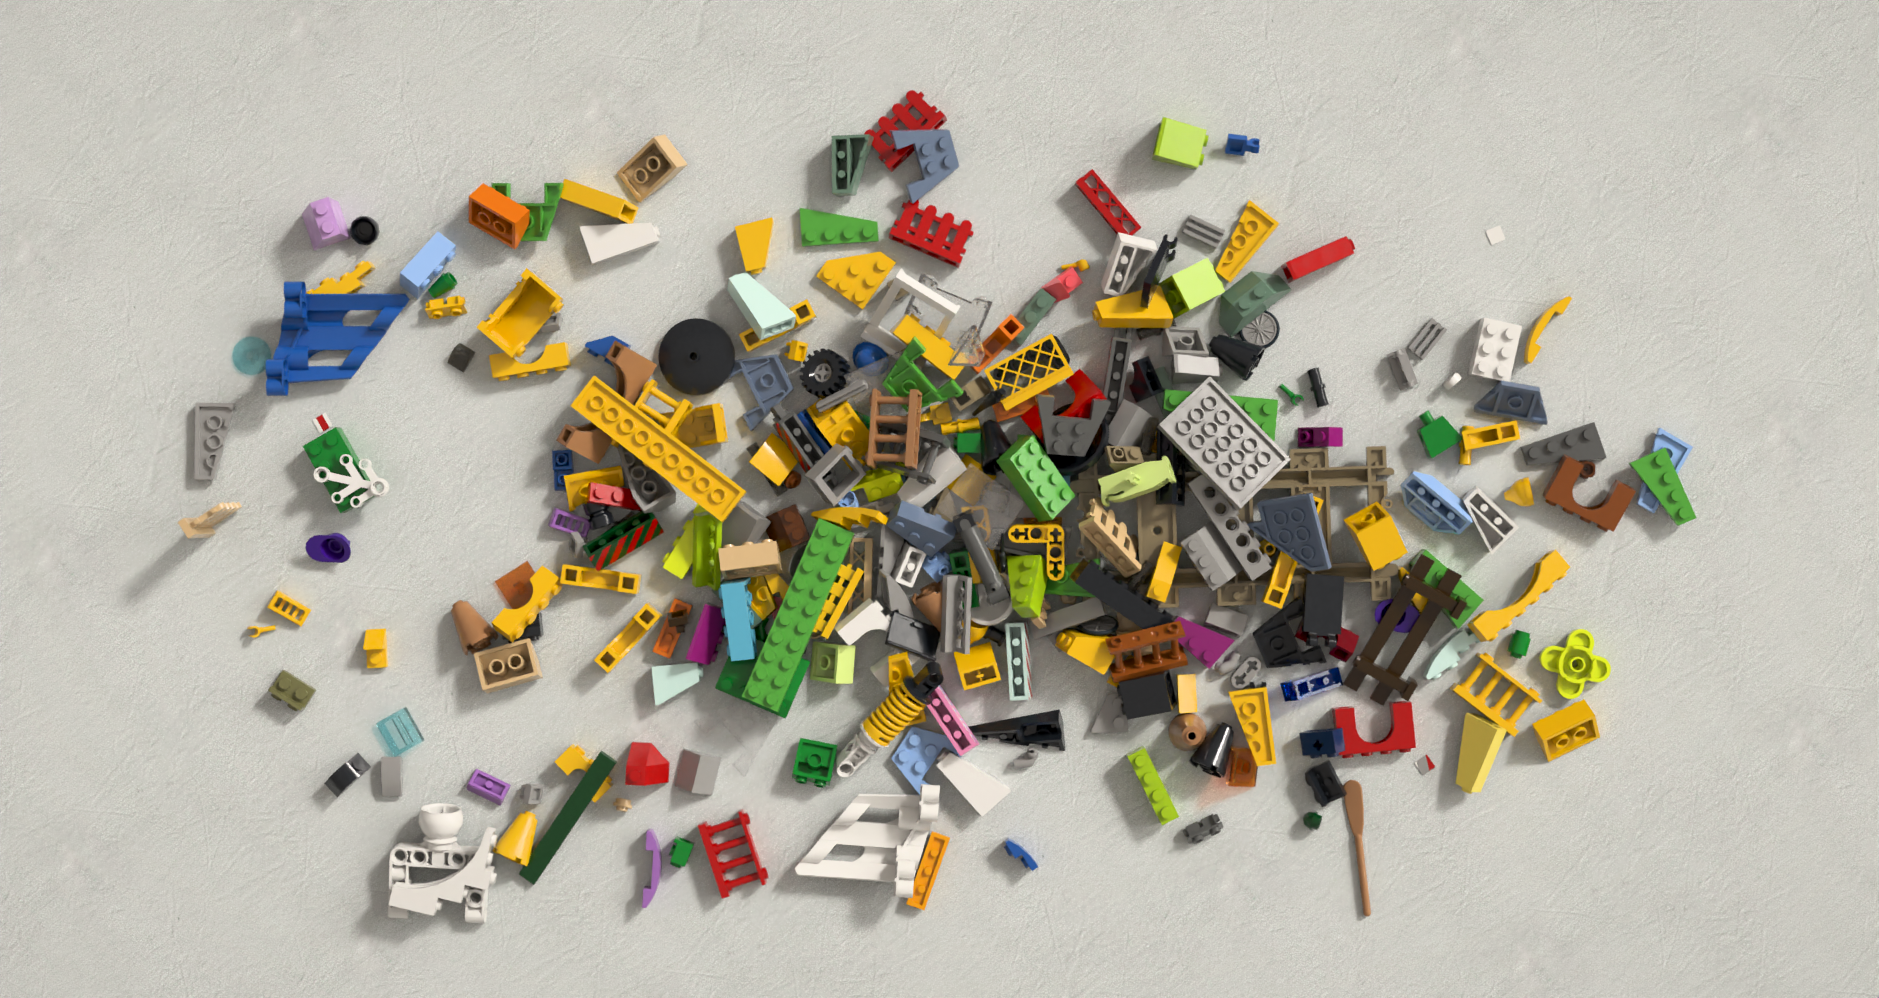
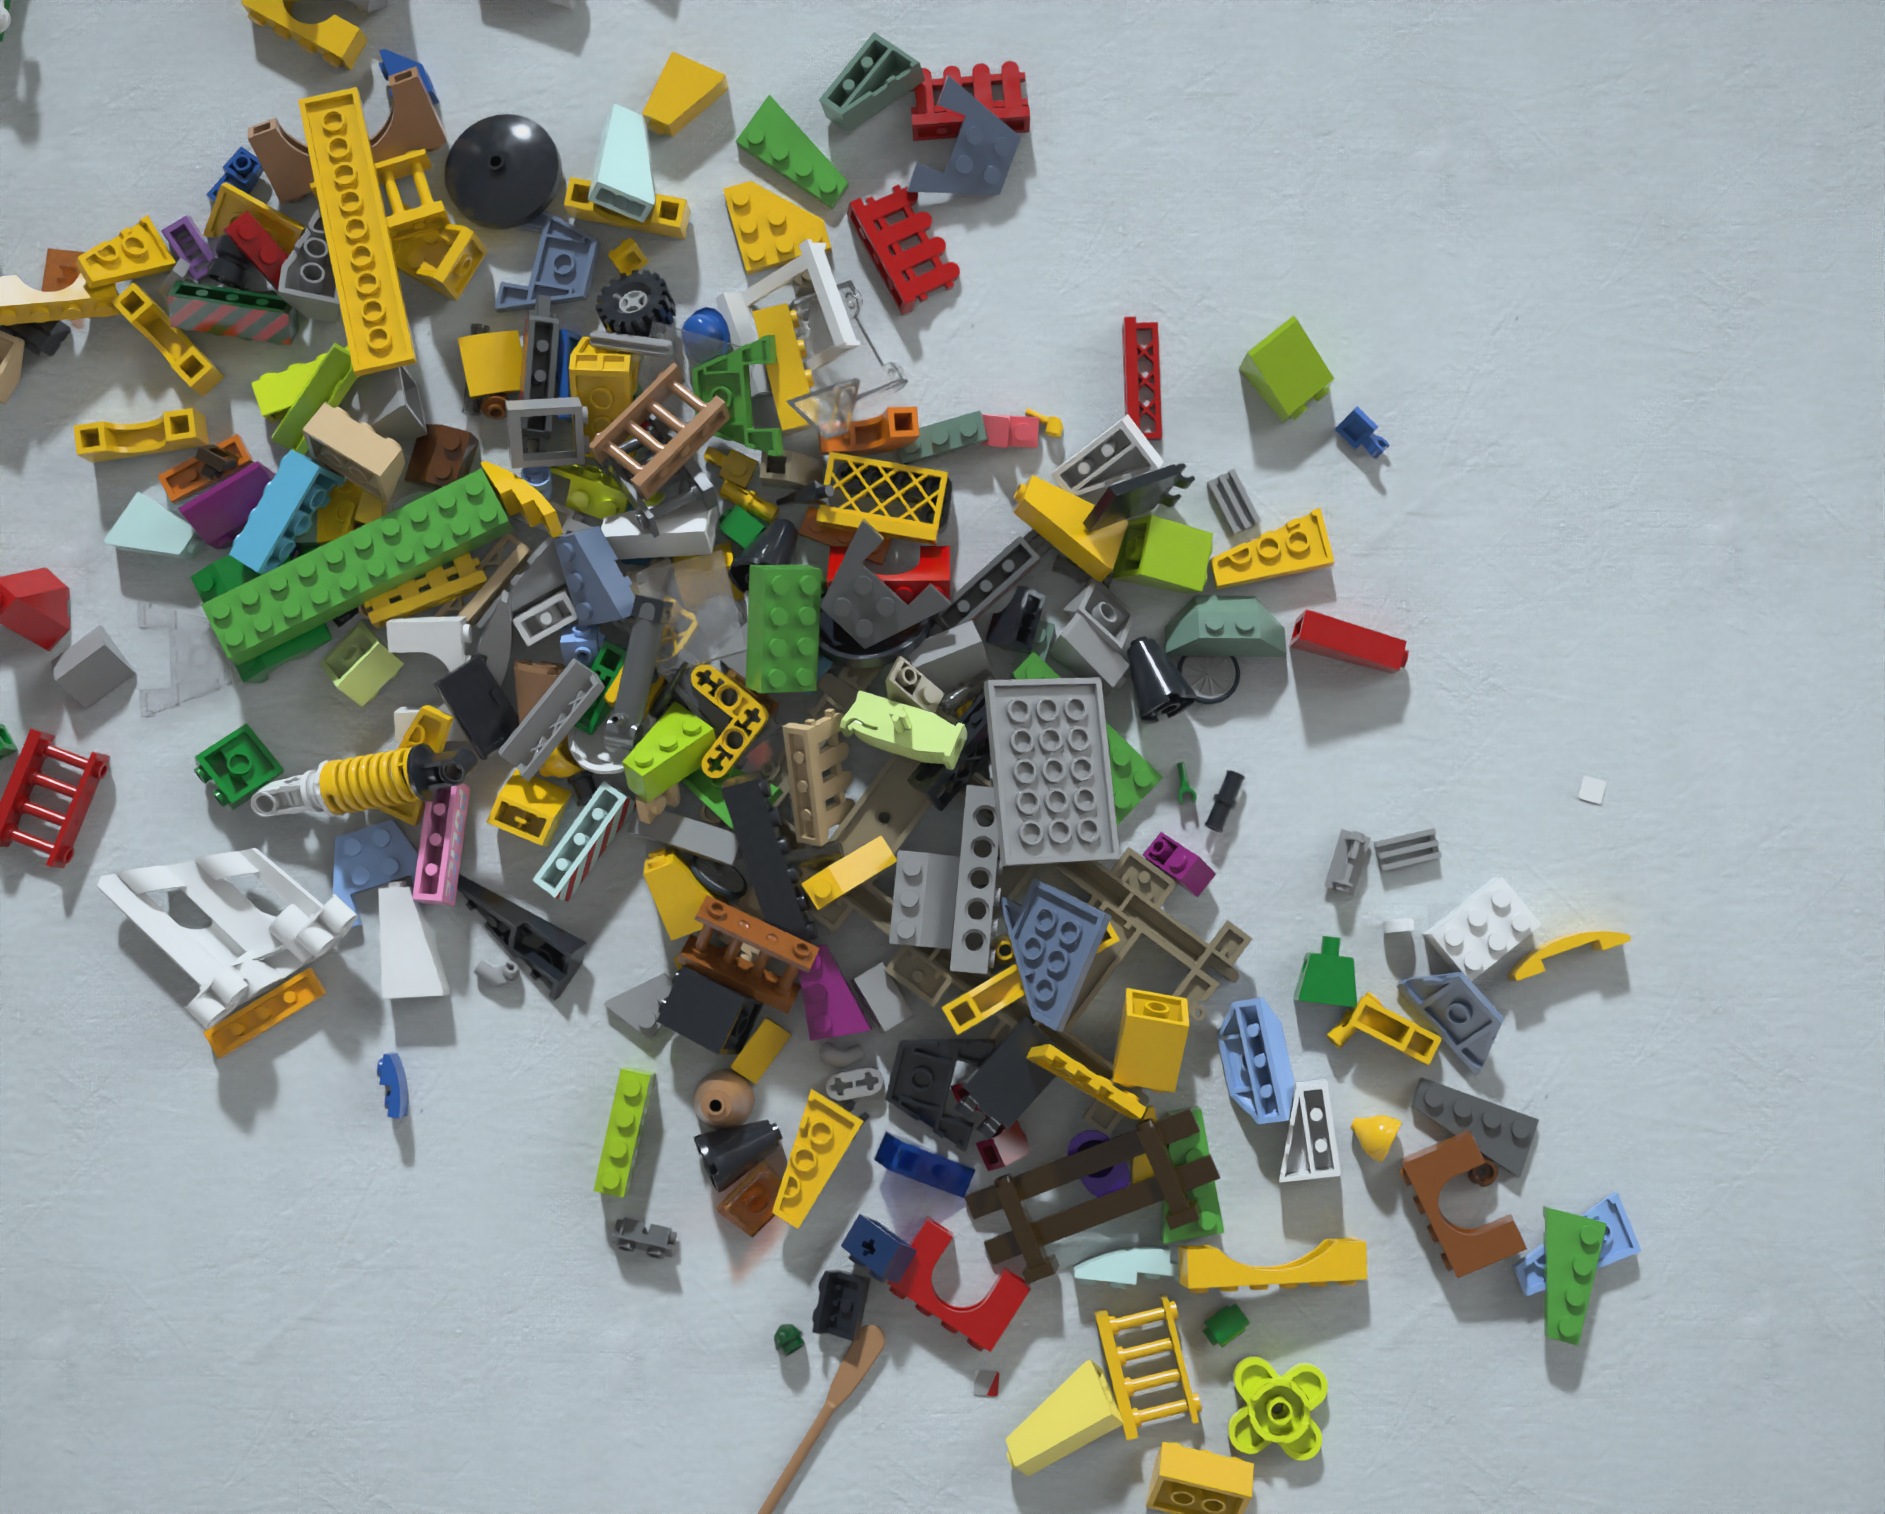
camera: 40 degrees right, 5 degrees down
(545, 553) = (128, 256): none -> yellow wing
(1357, 581) = (1086, 1081): none -> yellow wing

